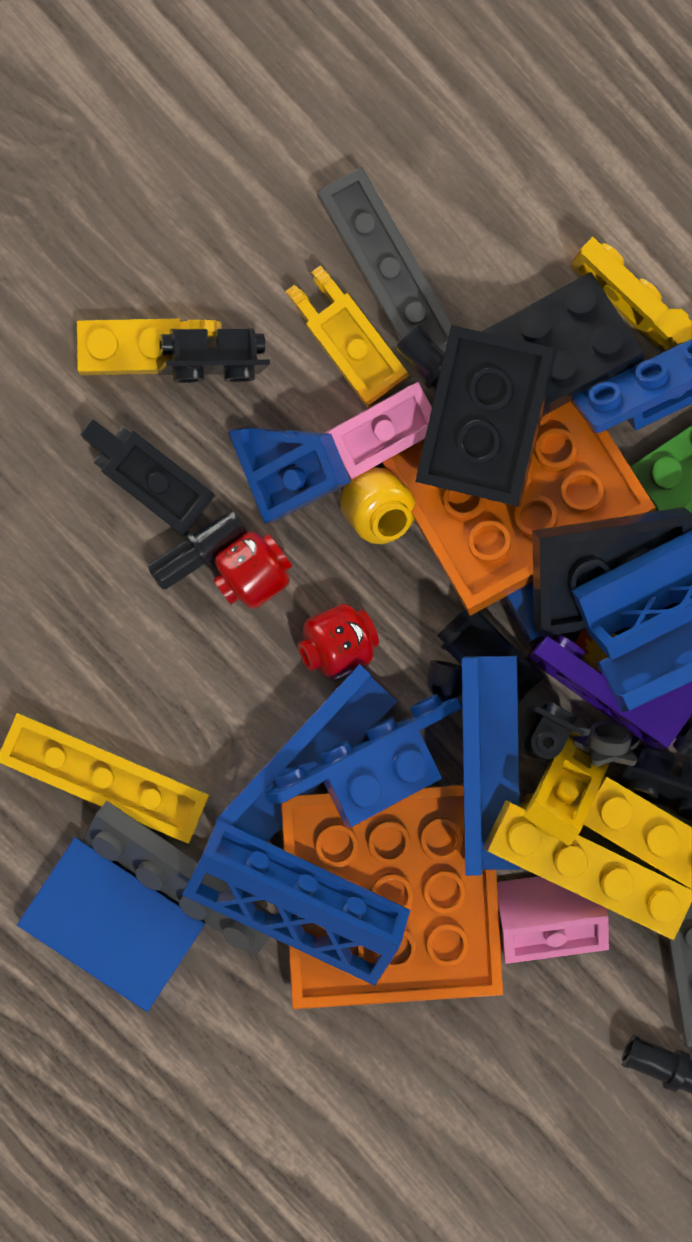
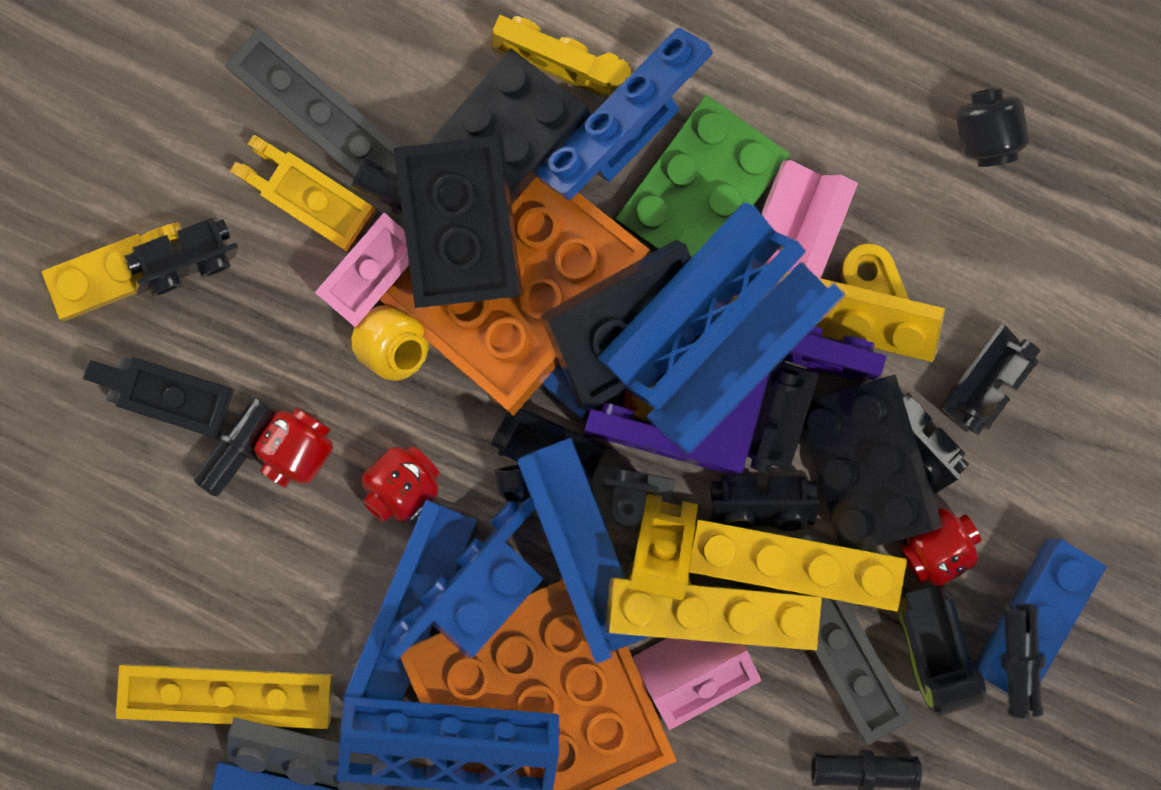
camera: 25 degrees left, 0 degrees up
(288, 468) = (292, 338): blue wing -> none
(609, 743) = (690, 486): dark grey plate -> none

